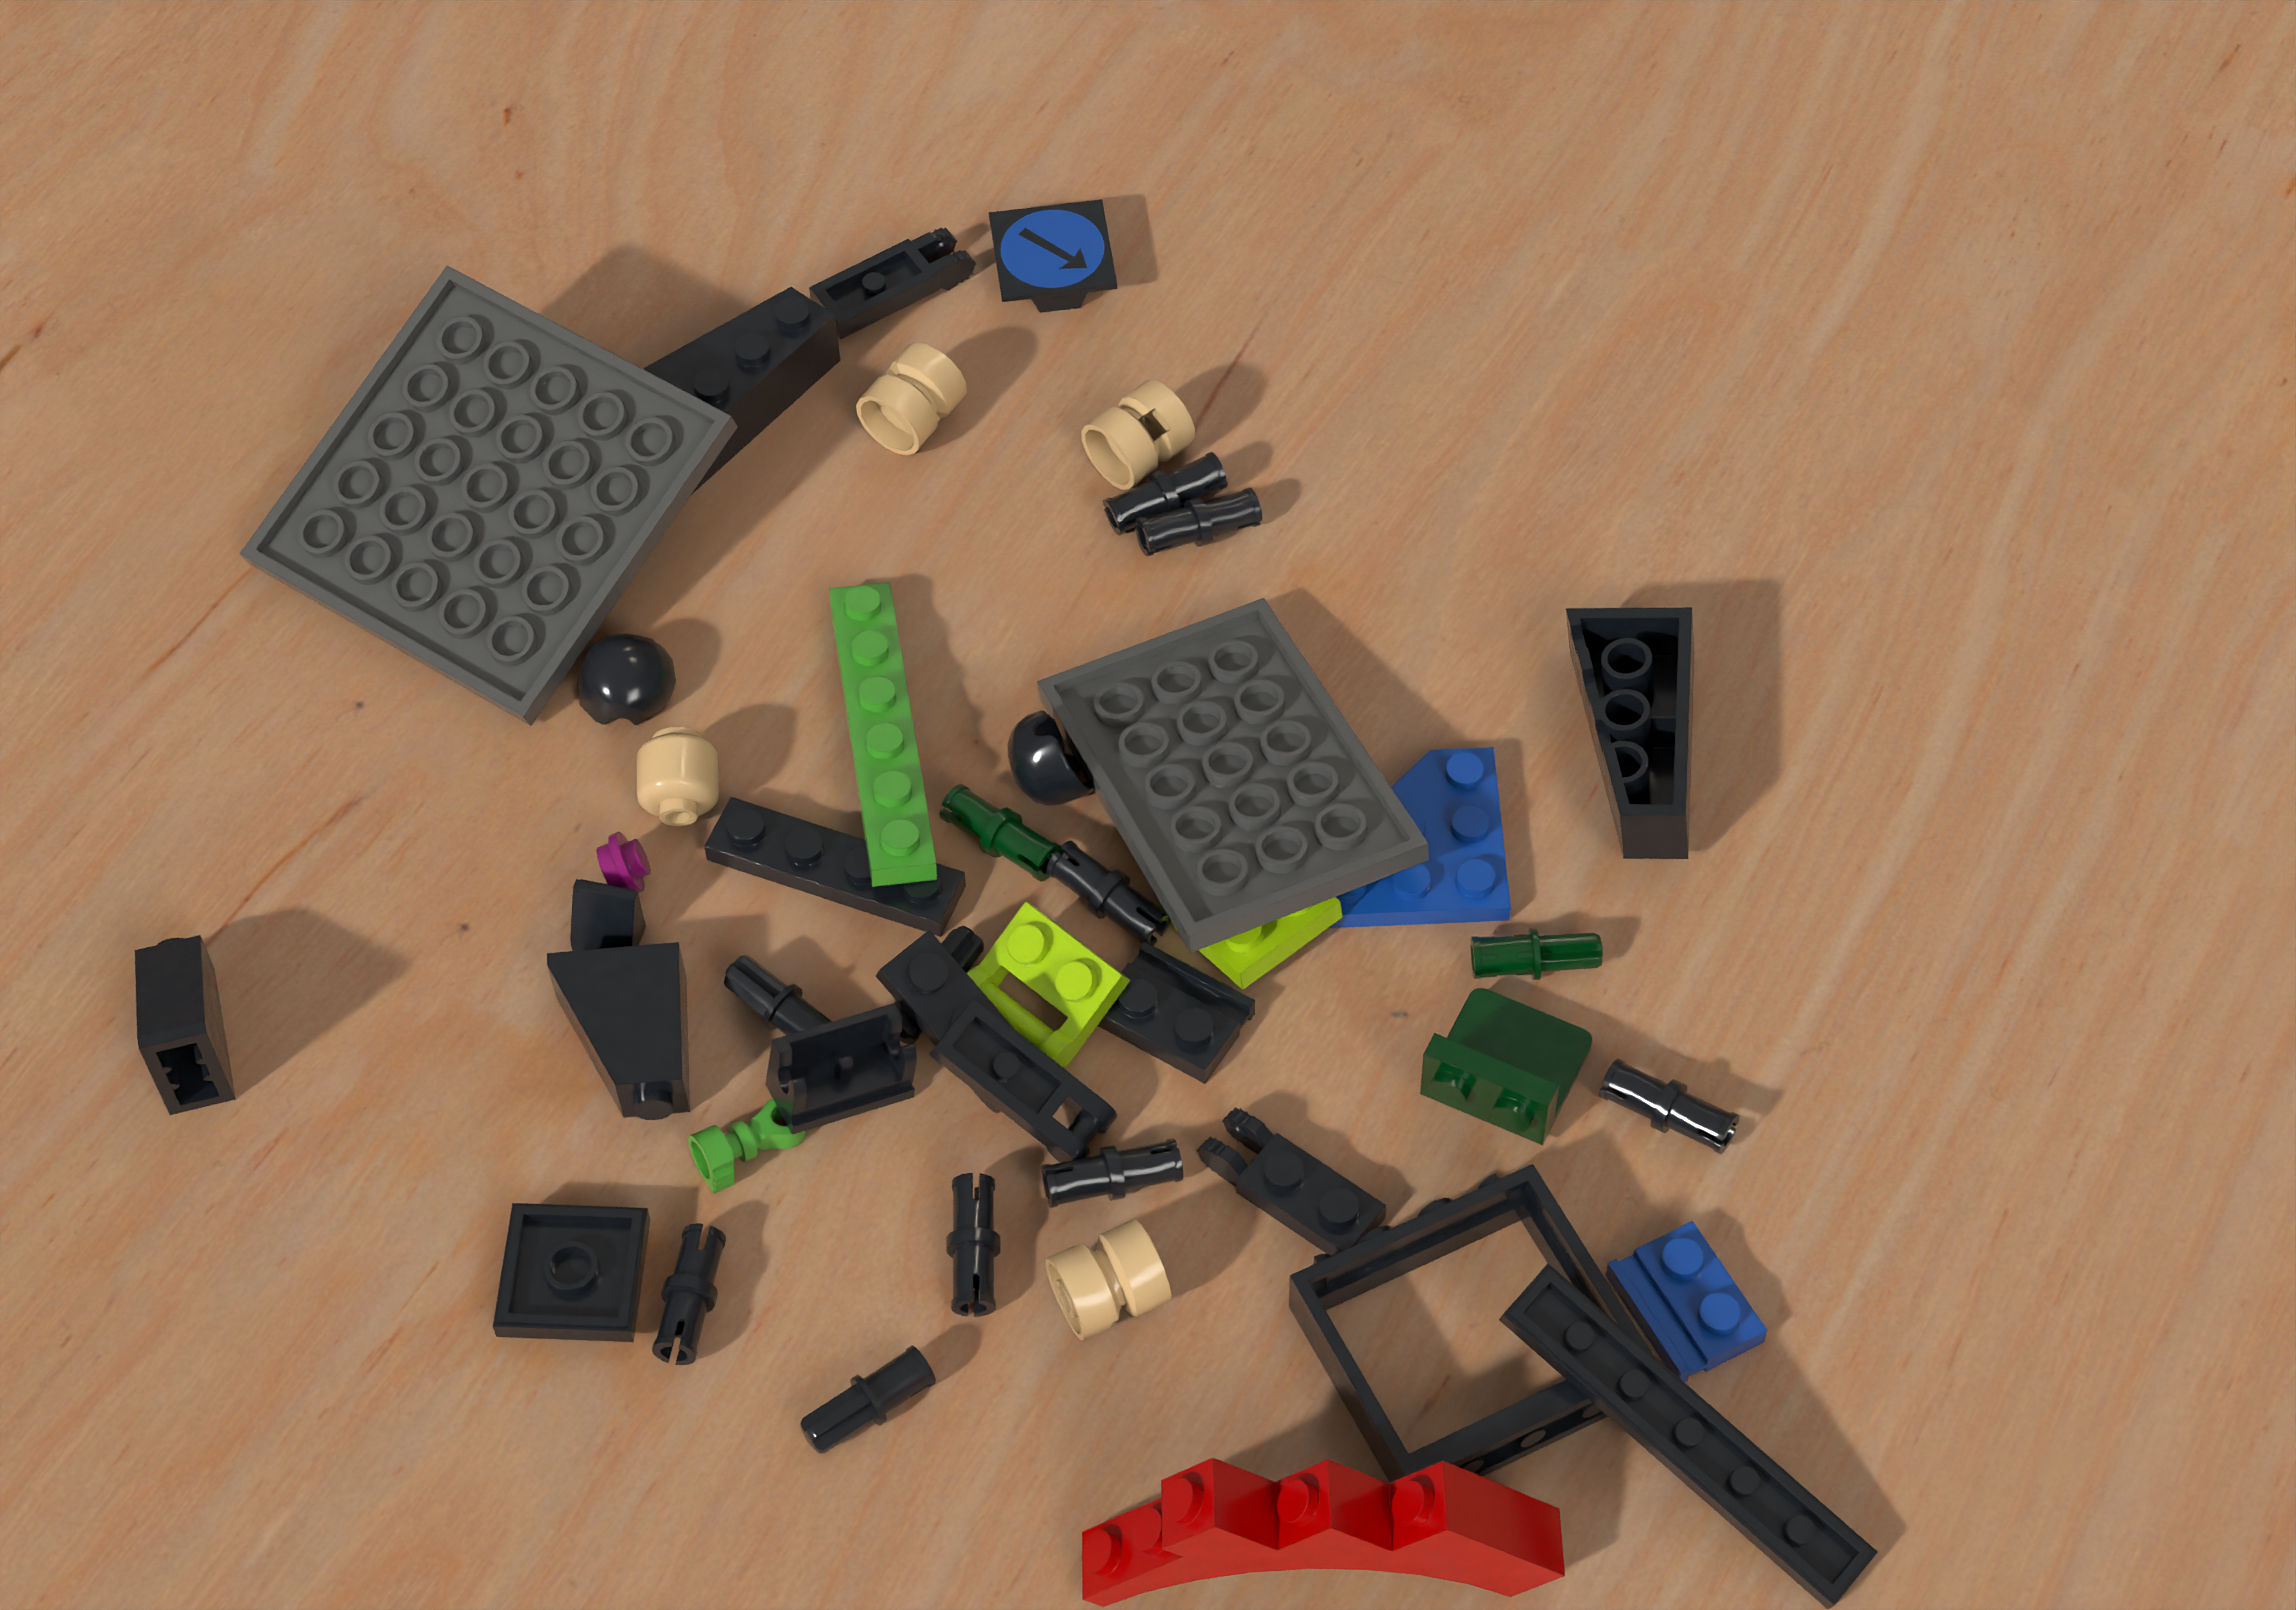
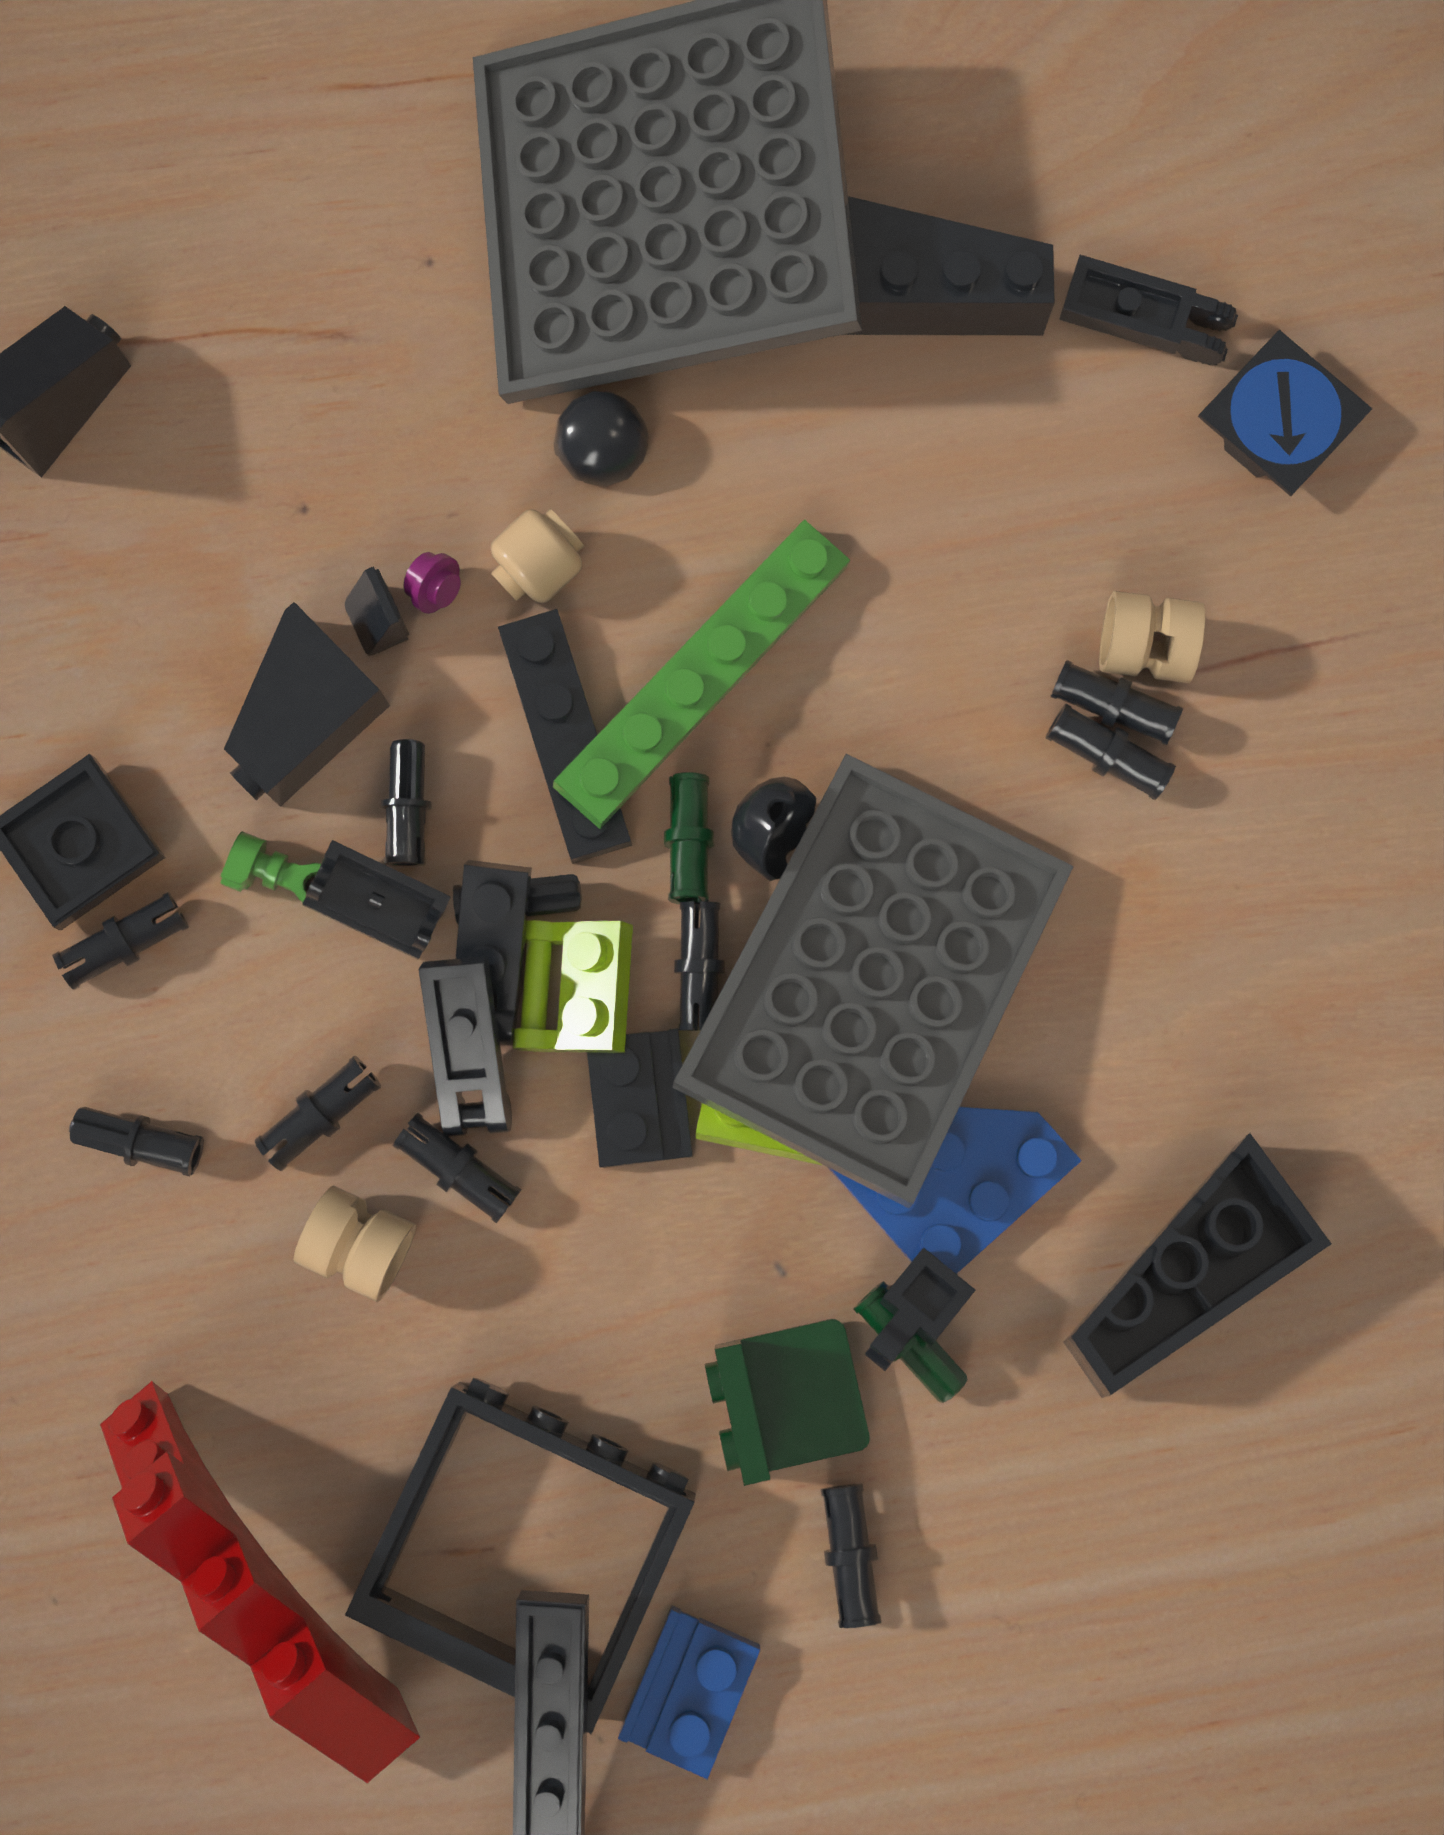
camera: 50 degrees right, 25 degrees up
(911, 398) = (1038, 428): tan wheel -> none
(1293, 1185) = (556, 1316): black hinge -> none
(1512, 908) = (922, 1303): none -> black plate

